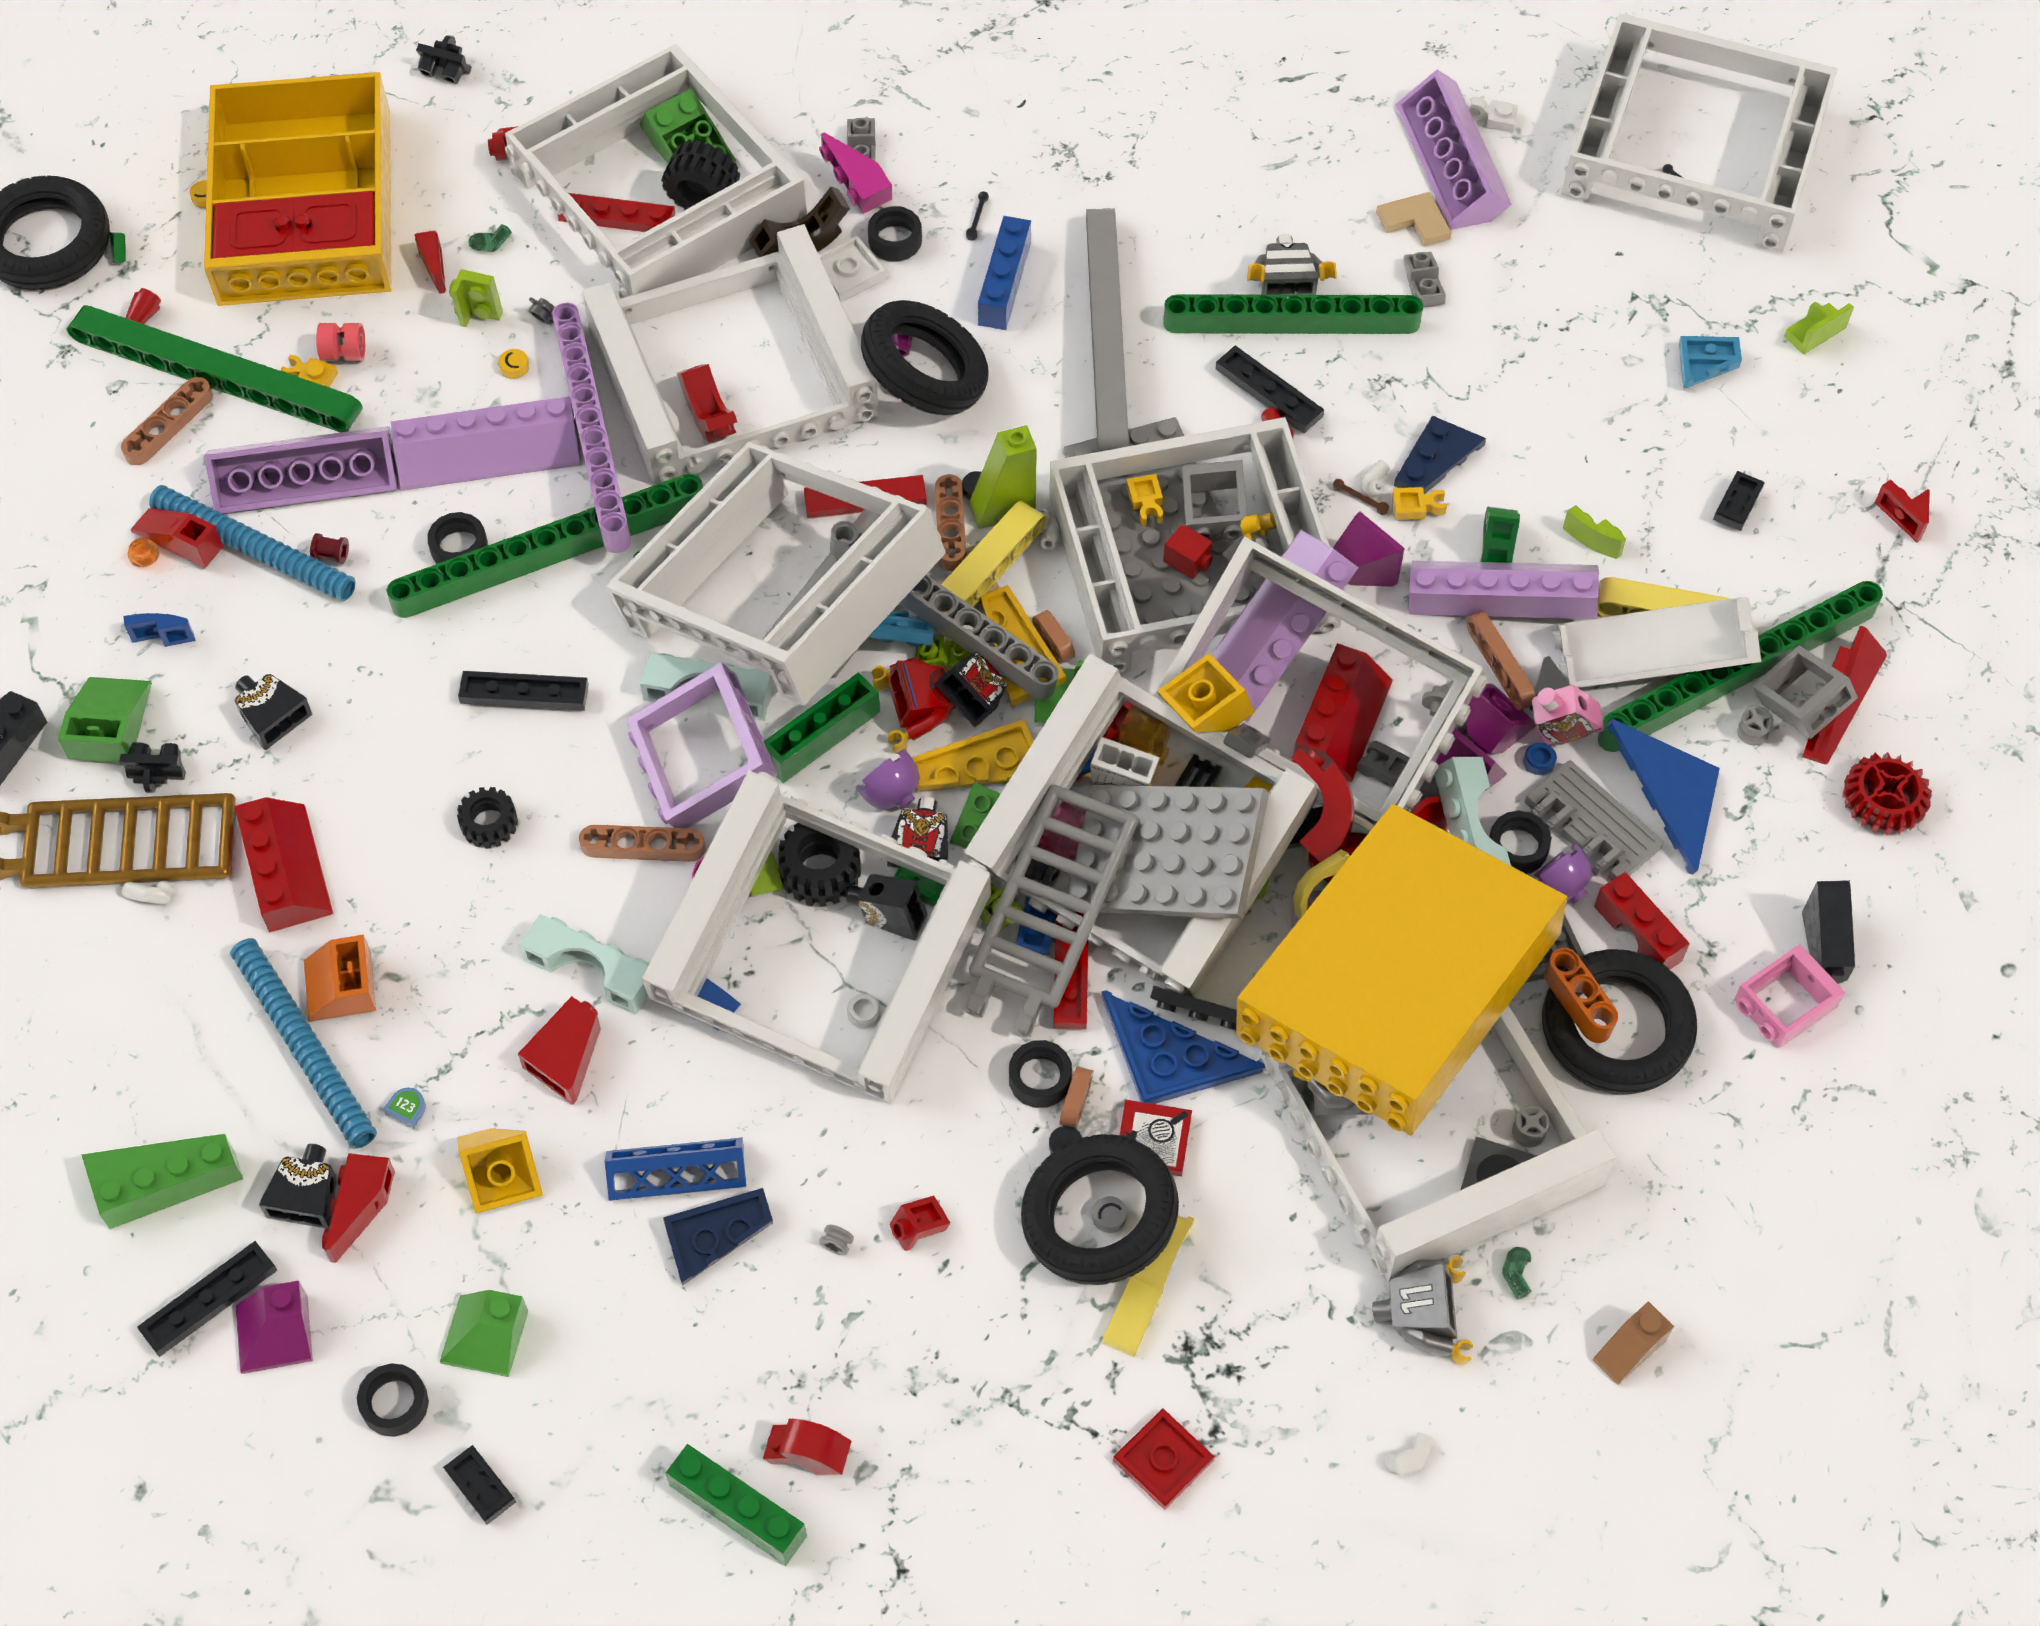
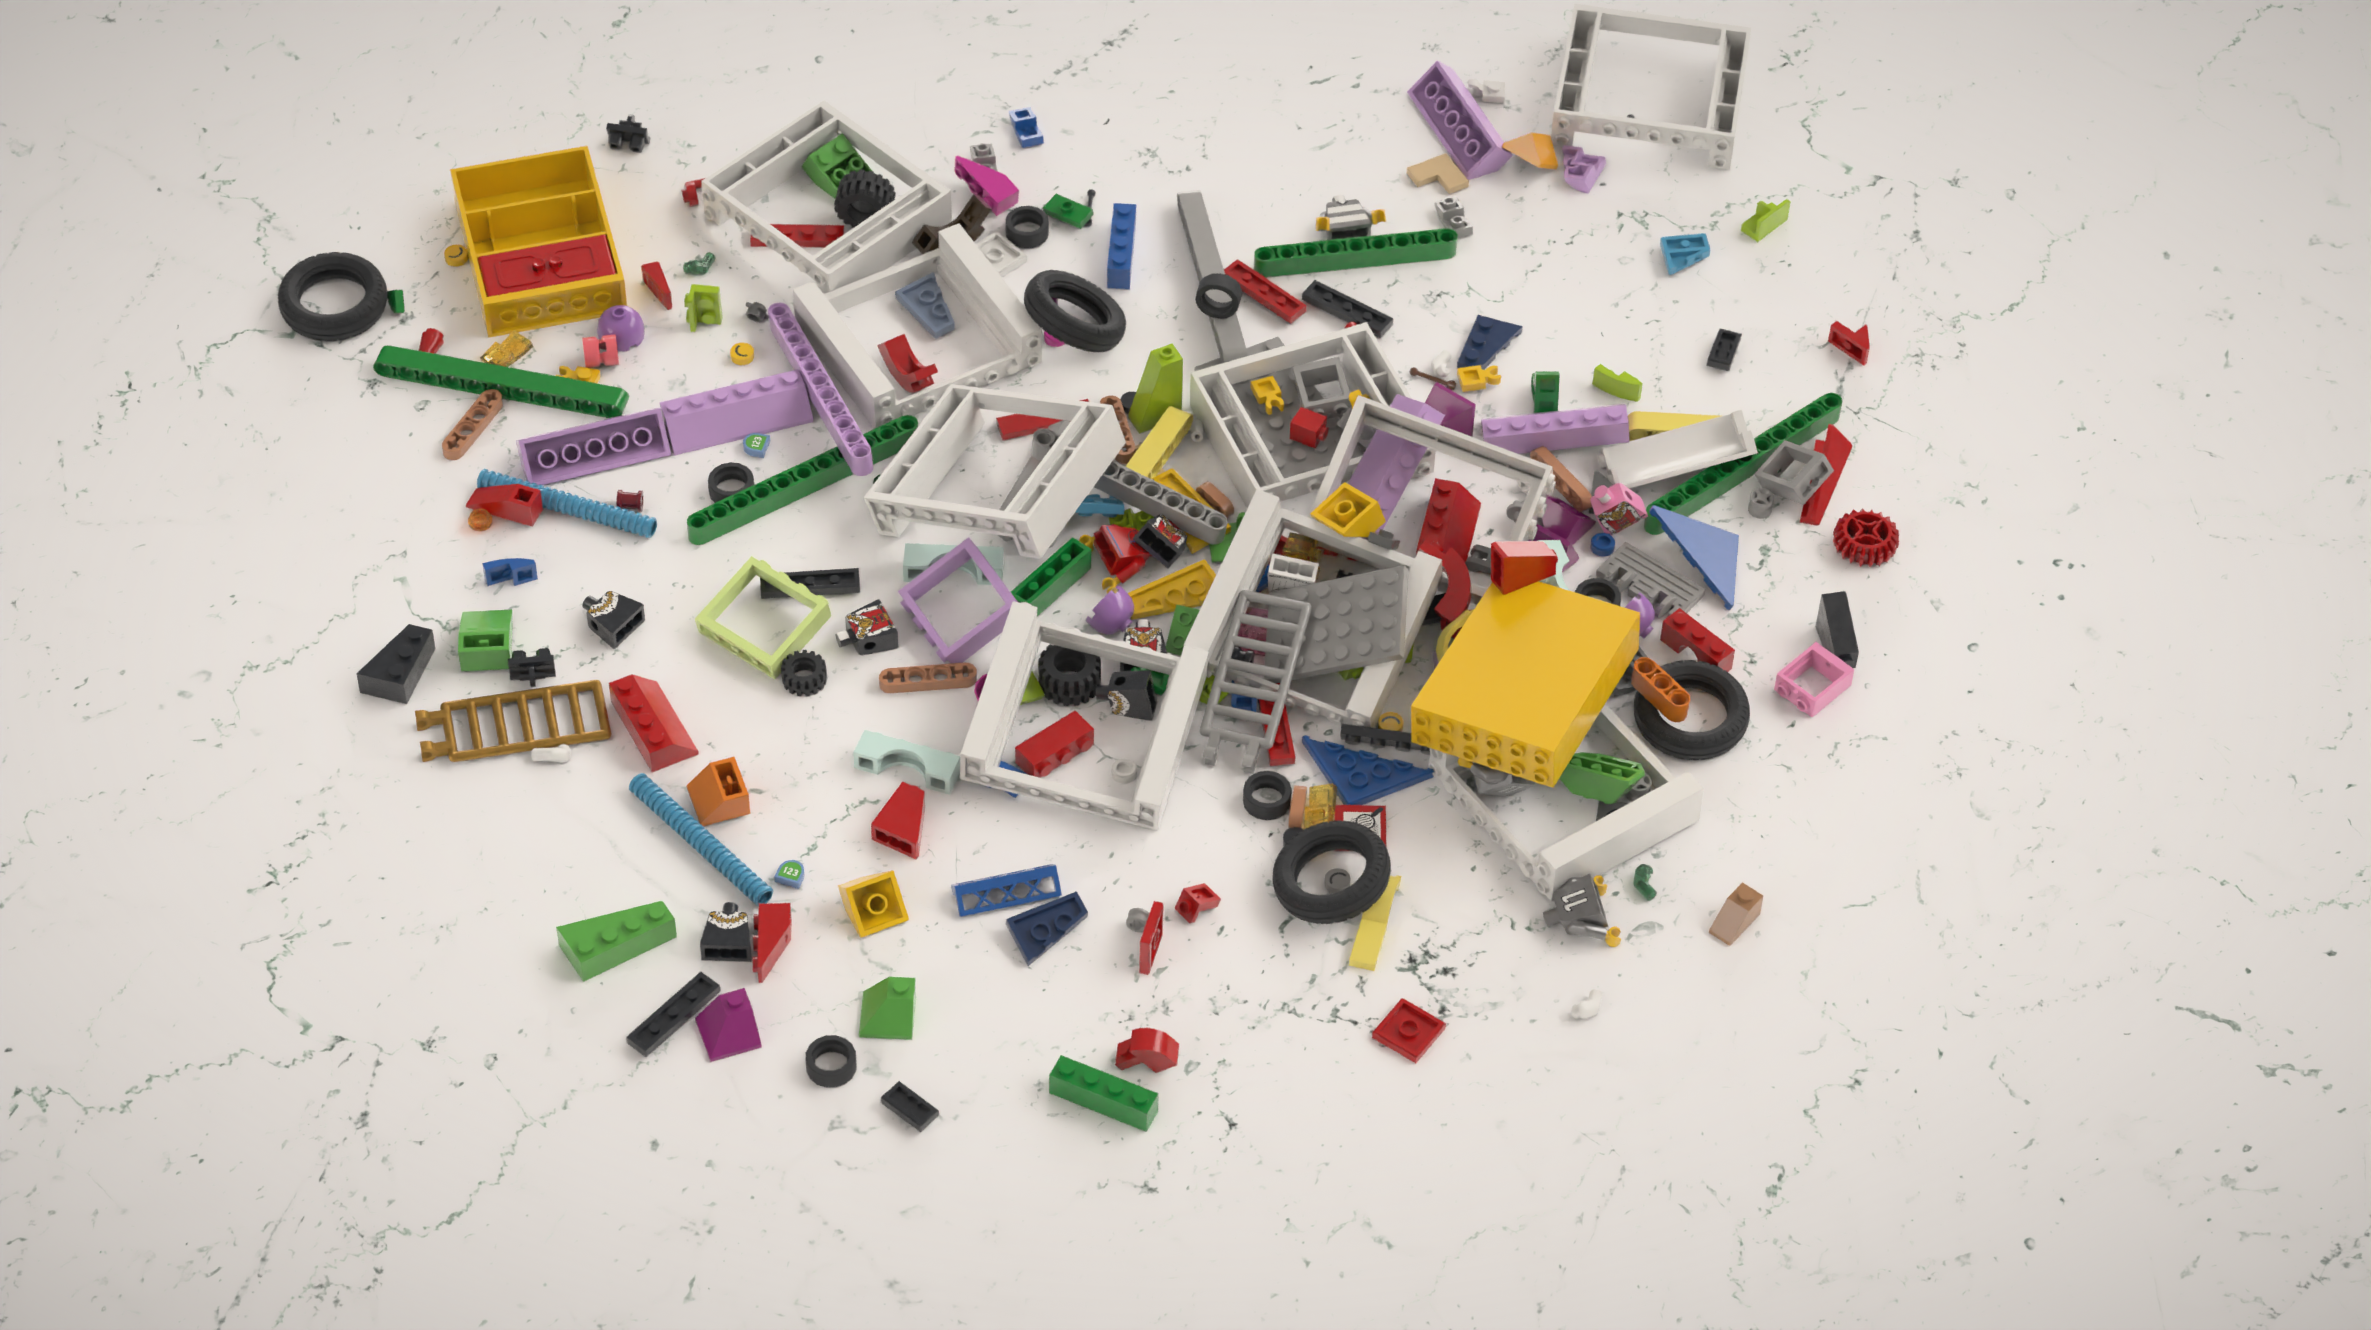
camera: 10 degrees left, 10 degrees down
(236, 328) = (508, 351): none -> clear yellow slope
(377, 310) = (624, 323): none -> medium lavender cylinder
(484, 772) = (742, 648): none -> yellowish green window
(503, 488) = (756, 444): none -> tile
(581, 767) = (869, 630): none -> torso
(751, 324) = (927, 306): none -> sand blue wing
(780, 965) = (1055, 745): none -> red brick
(844, 1276) = (1151, 938): none -> red tile
(921, 101) = (1025, 127): none -> blue slope
(949, 217) = (1068, 211): none -> green plate
(1107, 1104) = (1321, 804): none -> clear yellow slope
(1108, 346) = (1223, 283): none -> black tyre
(1170, 353) = (1266, 292): none -> red plate
(1220, 987) = (1391, 721): none -> yellow tile
(1420, 805) = (1520, 564): none -> red slope
(1487, 1109) = (1601, 776): none -> bright green wedge
(1539, 201) = (1534, 149): none -> light orange slope
(1595, 230) = (1581, 169): none -> lavender slope

